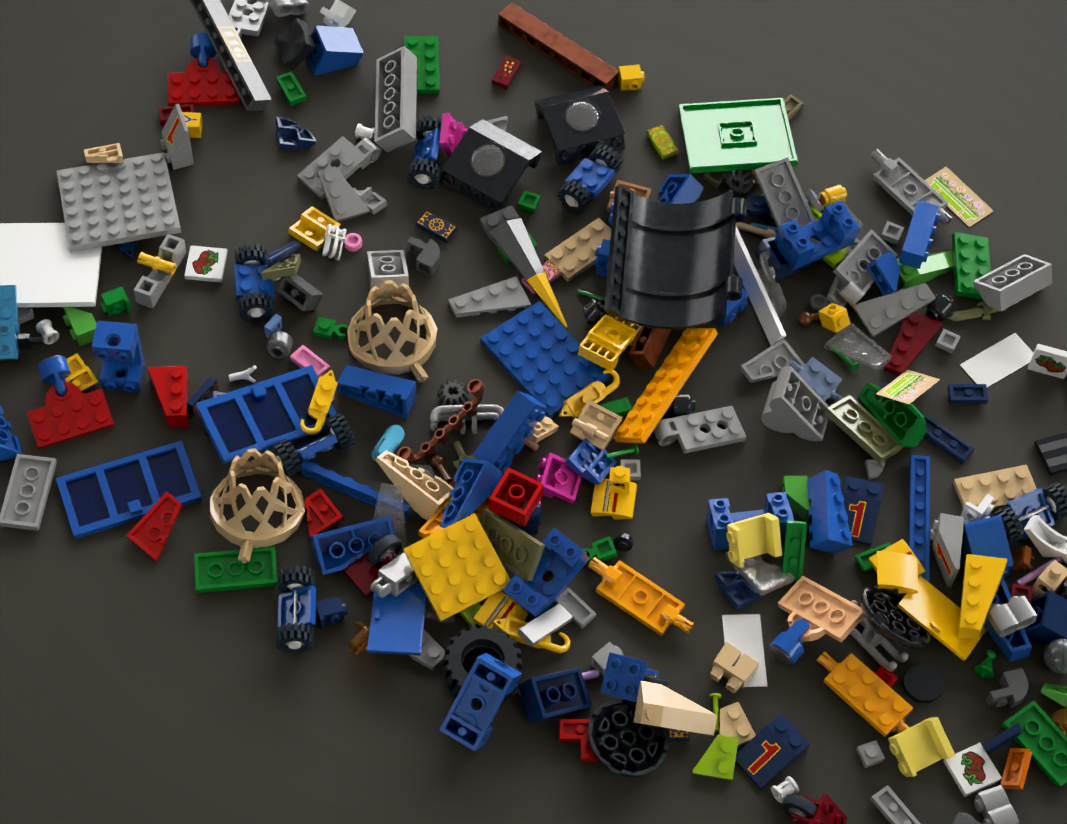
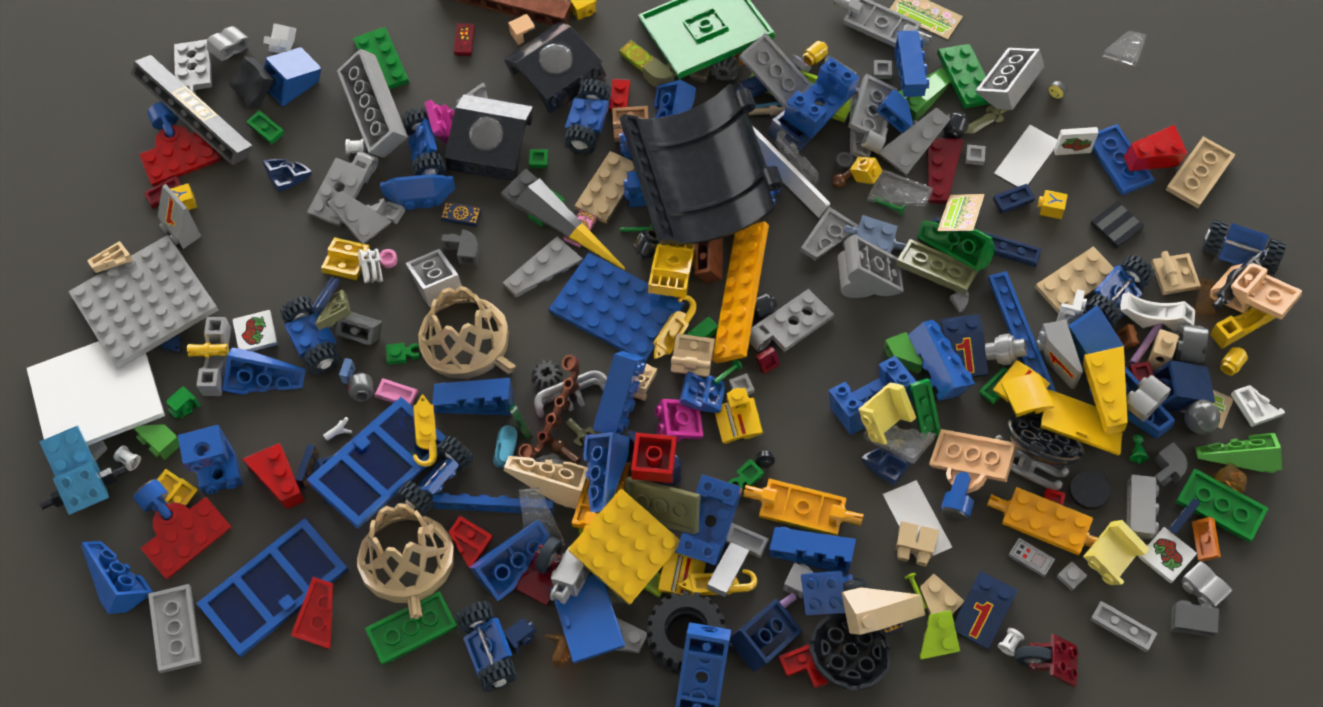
camera: 15 degrees left, 5 degrees up
(190, 298) = (255, 372): none -> blue wedge
(406, 191) = (418, 190): none -> blue wedge
(411, 426) = (520, 421): none -> dark green tile
(562, 77) = (519, 27): none -> light nougat panel
(631, 169) = (620, 94): none -> red plate
(633, 637) = (813, 549): none -> blue wedge
(664, 455) = (767, 360): none -> dark red tile
(673, 162) = (658, 73): none -> olive brick
(838, 723) = (1031, 557): none -> light grey tile
(896, 526) = (1005, 349): none -> light grey piece
(967, 716) = (1142, 506): none -> light grey brick
(1003, 412) = (1052, 204): none -> yellow brick
(1055, 309) = (1057, 90): none -> tile

